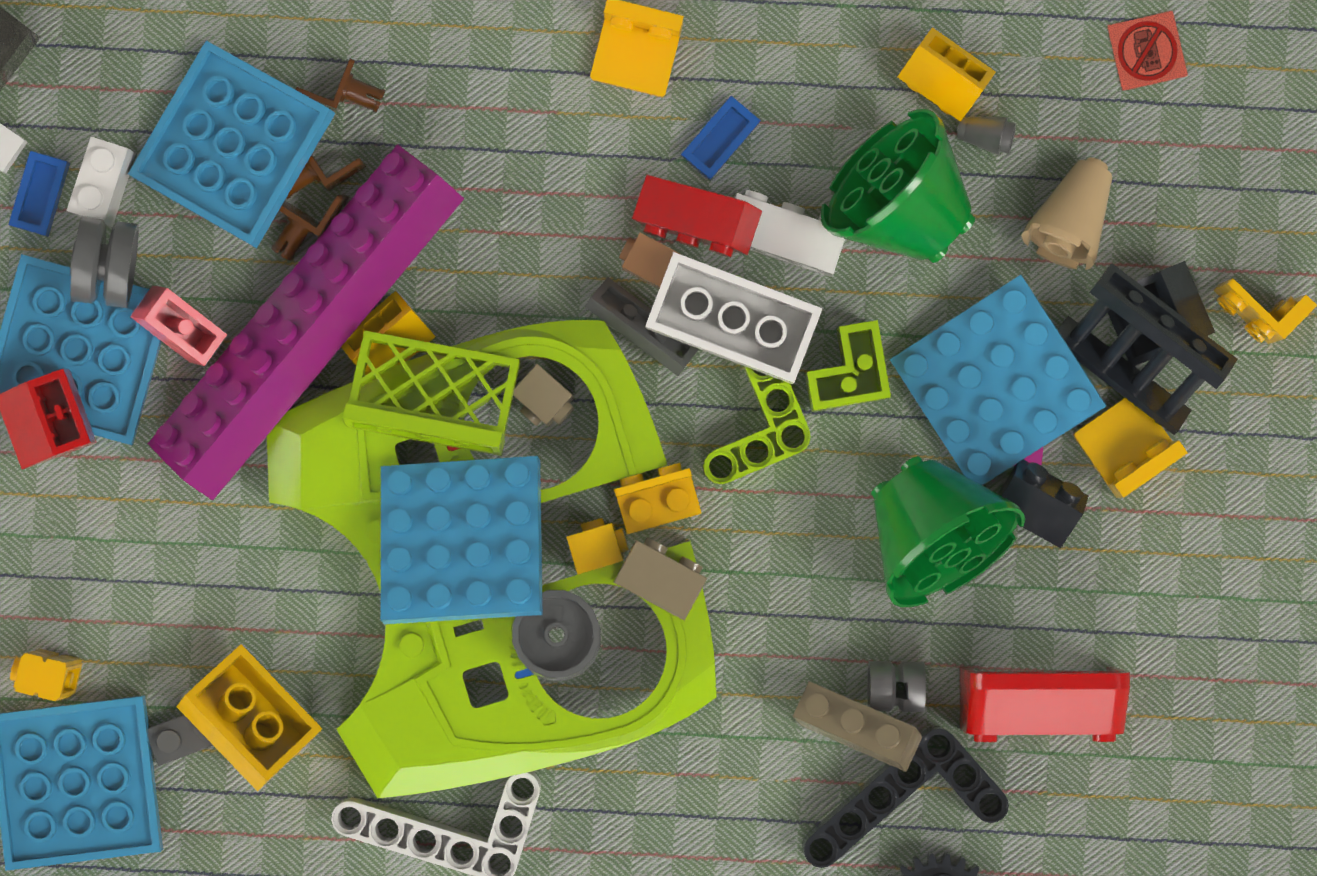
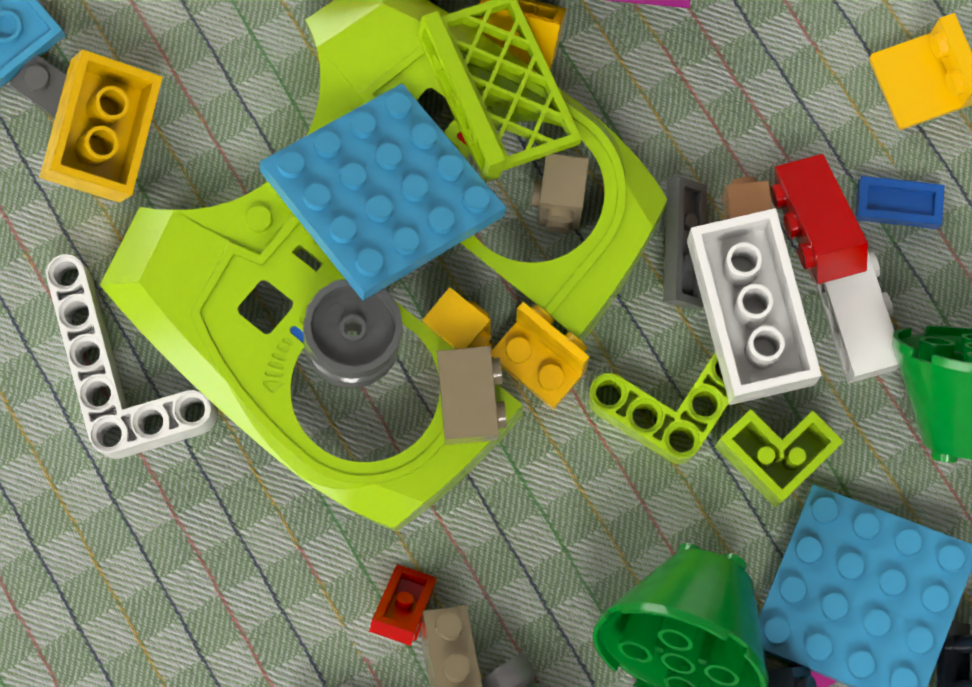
camera: 60 degrees right, 10 degrees down
(775, 726) = (403, 605): none -> red slope

